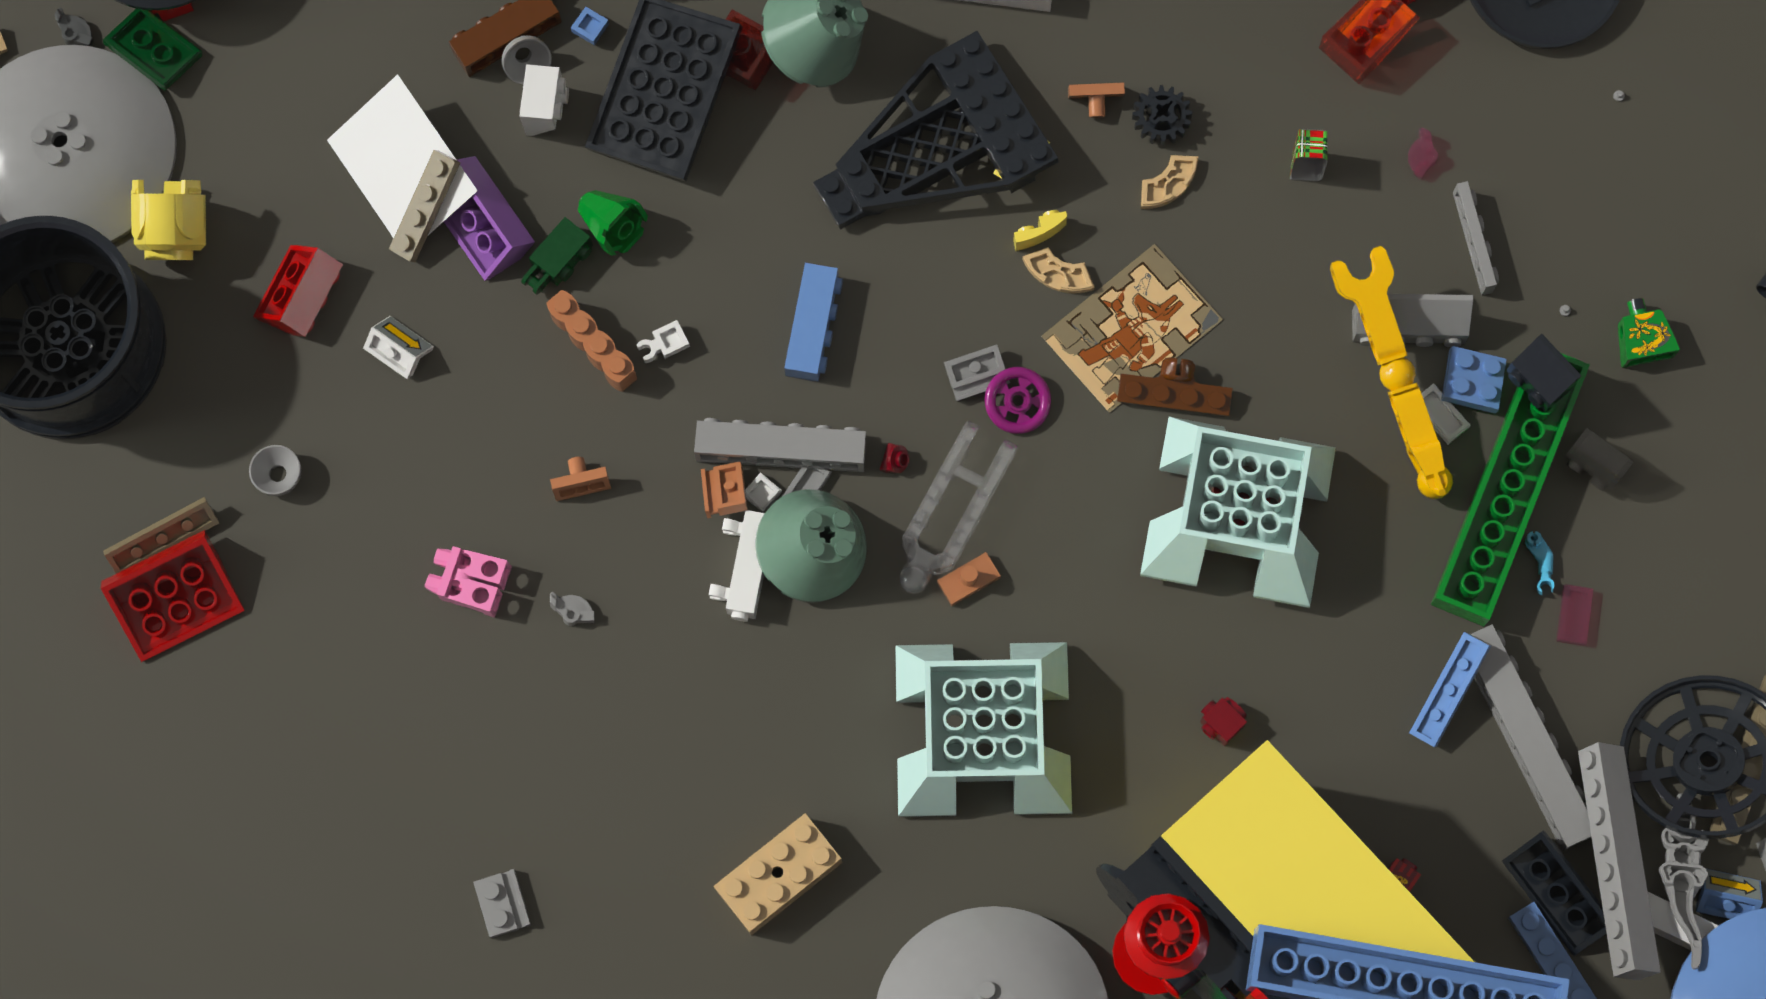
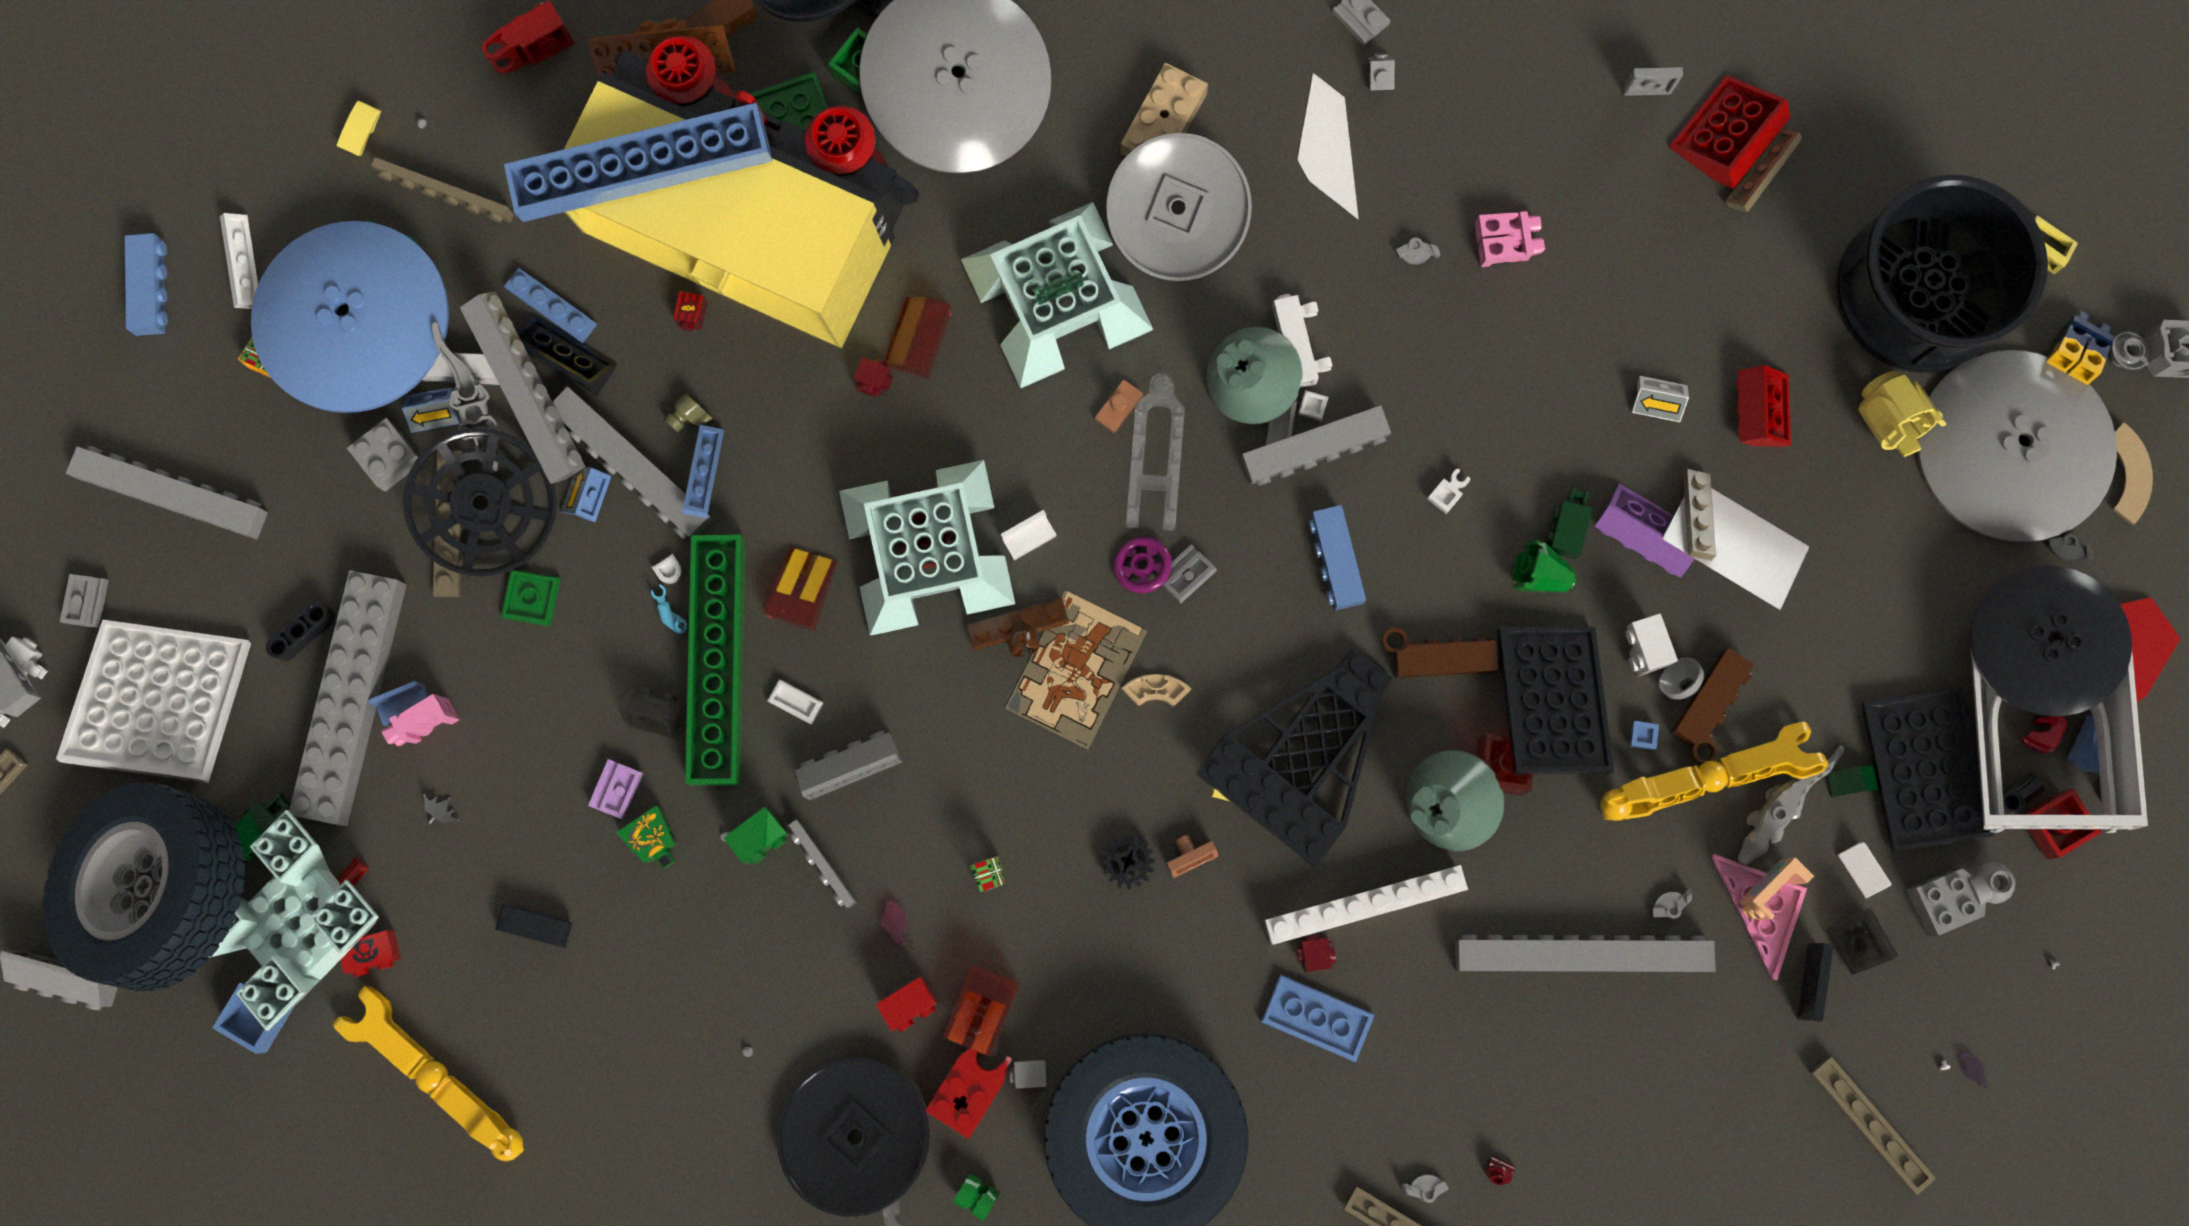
camera: 155 degrees right, 5 degrees up
(152, 48) = (1991, 556): dark green tile -> none
(228, 678) = (1652, 81): none -> light grey tile
(267, 460) = (1708, 246): light grey piece -> none
(512, 827) = (1381, 72): none -> light grey bracket
(580, 480) = (1461, 352): nougat tile -> none
(586, 337) = (1501, 462): nougat brick -> none
(611, 773) = (1326, 145): none -> white sticker
(724, 489) = (1343, 389): nougat plate -> none
(753, 179) = (1442, 658): none -> reddish brown hinge
(816, 724) = (1213, 197): none -> light grey dish
(895, 459) = (1220, 476): dark red plate -> none
(986, 704) = (1058, 287): none -> clear green slope
(1048, 226) = (1182, 721): light yellow slope -> none
(1124, 481) = (1028, 535): none -> white panel
(1155, 746) = (918, 335): none -> clear red slope
(1169, 184) = (1096, 806): tan tile -> none
(1390, 525) = (800, 589): none -> clear red slope
(1396, 371) = (842, 705): yellow piece -> none
(1441, 65) = (908, 1003): none -> red brick
(1441, 771) = (687, 410): none -> olive piece
(1473, 379) = (778, 740): medium blue plate -> none
(1525, 607) = (668, 570): none -> white tile
(1535, 290) = (757, 836): none -> green slope
(1543, 373) = (719, 748): black slope -> none
(1574, 615) = (627, 580): clear pink tile -> none
(1588, 723) = (586, 494): none -> medium blue panel
(1664, 400) = (615, 789): none -> lavender plate
(1686, 640) = (530, 598): none -> green tile

